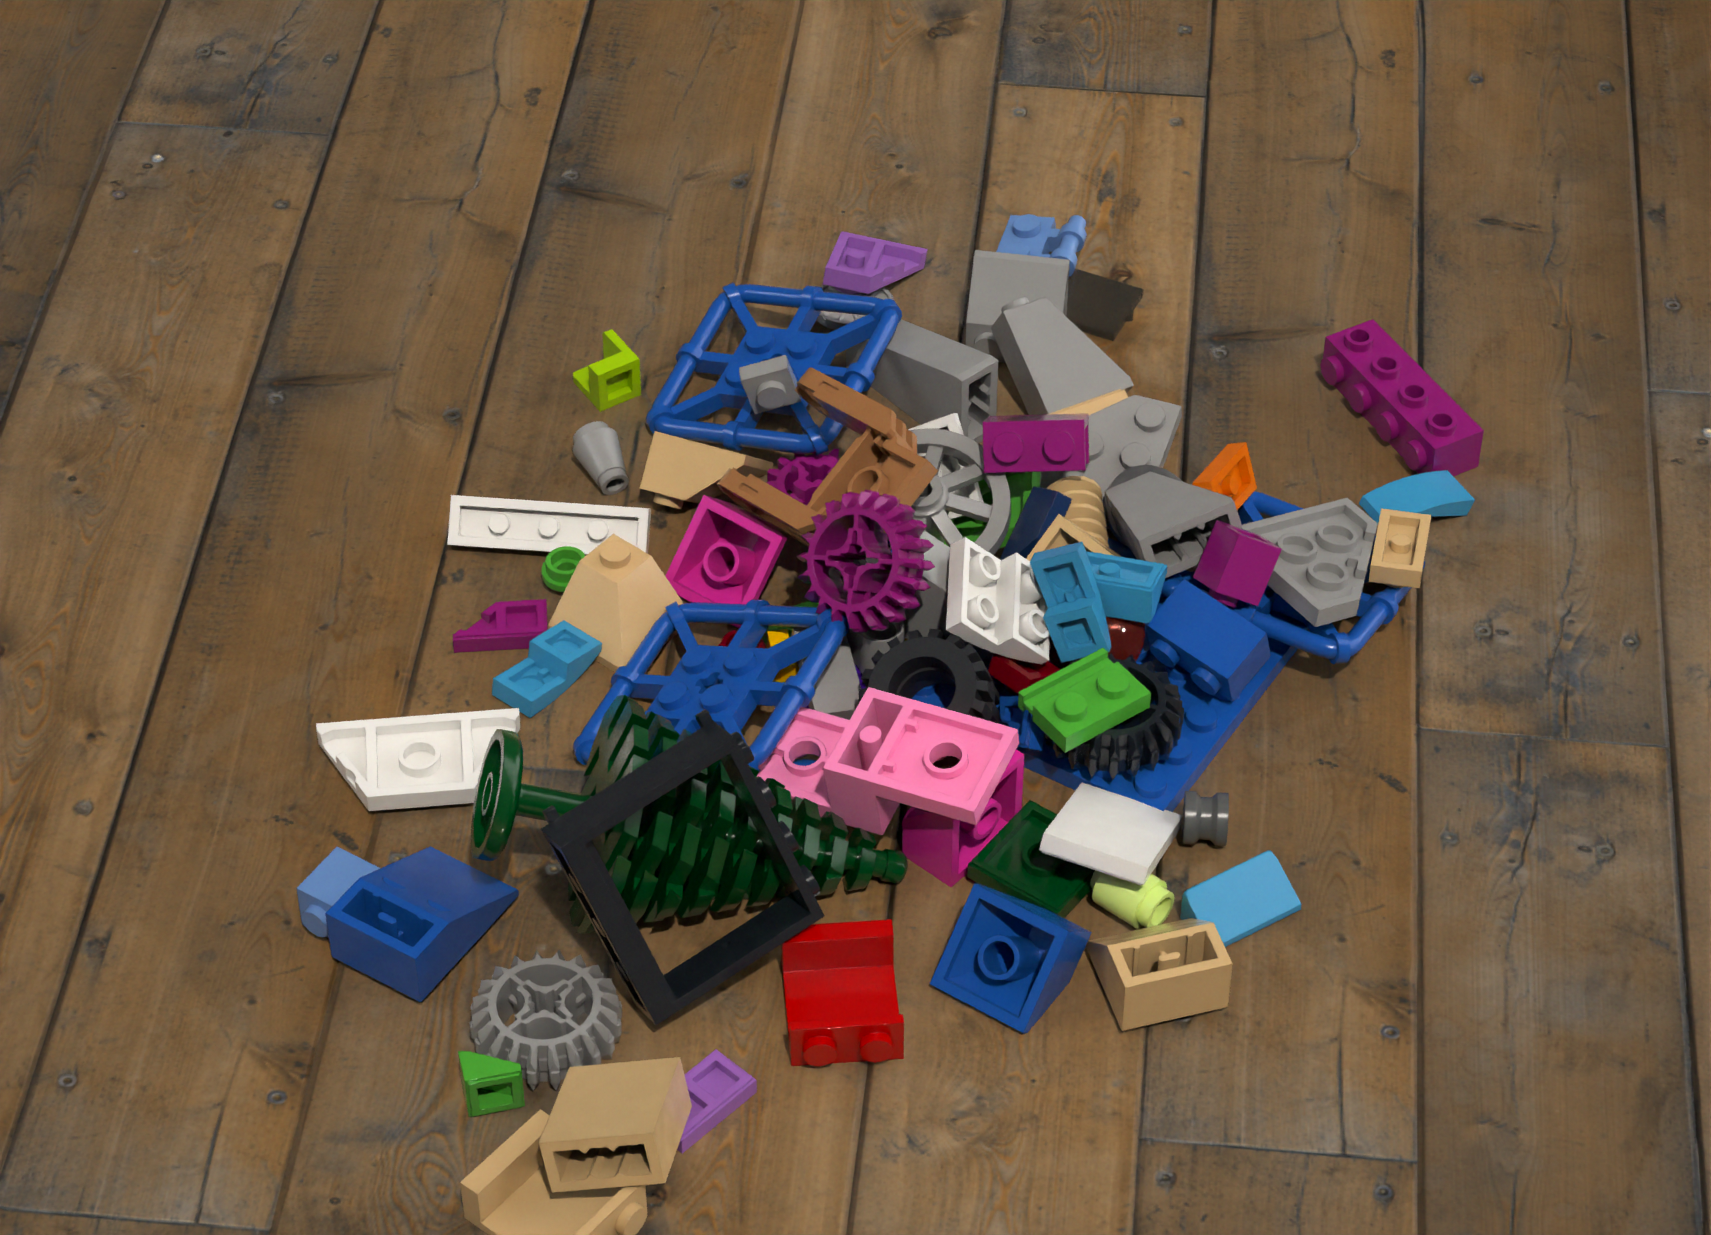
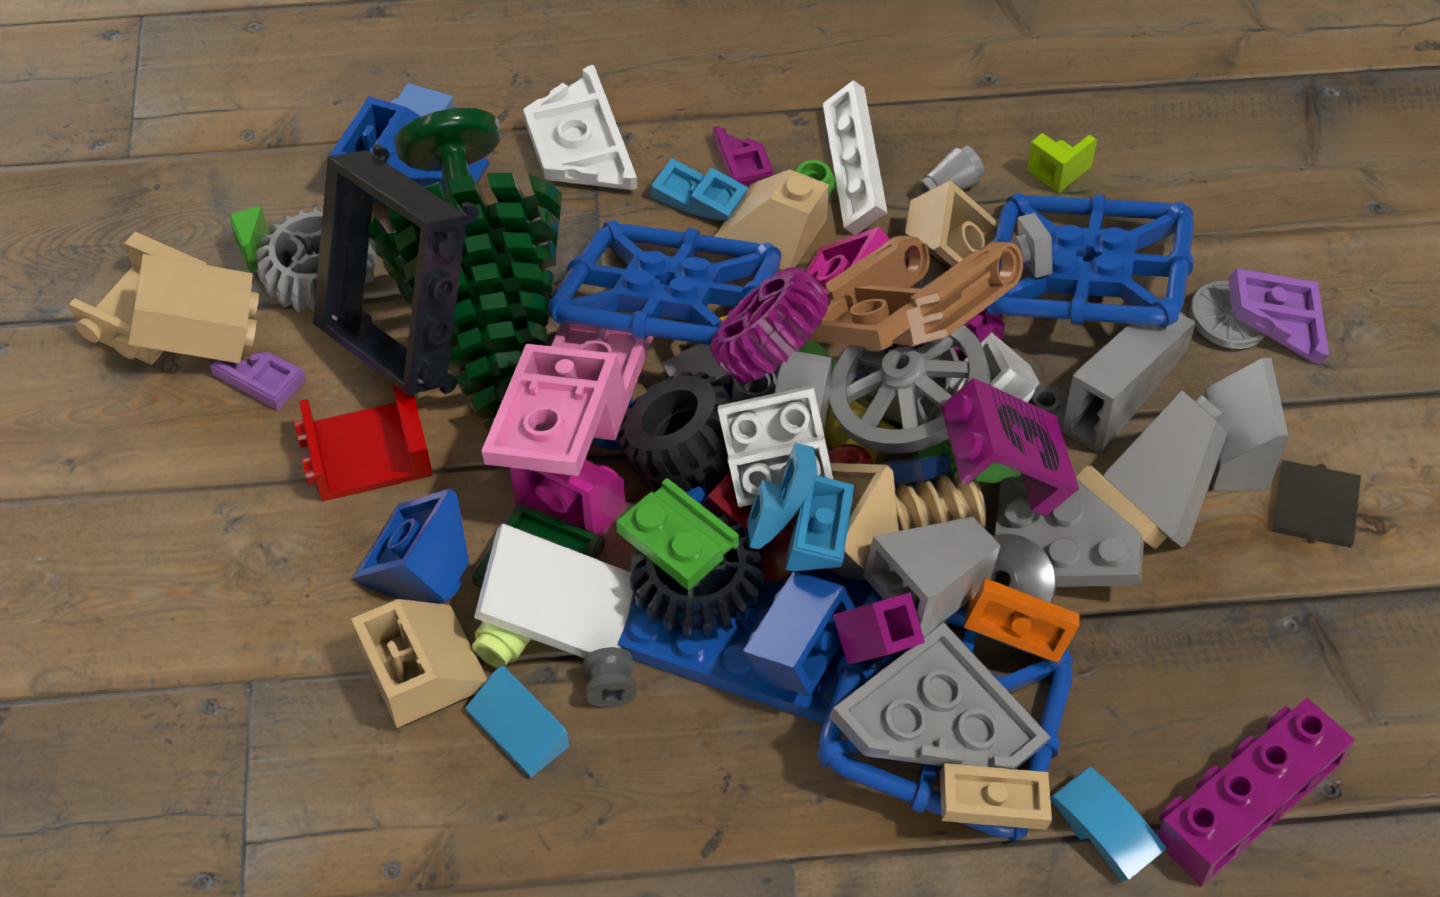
camera: 80 degrees right, 10 degrees up
(1039, 236) = (1367, 442): medium blue plate -> none

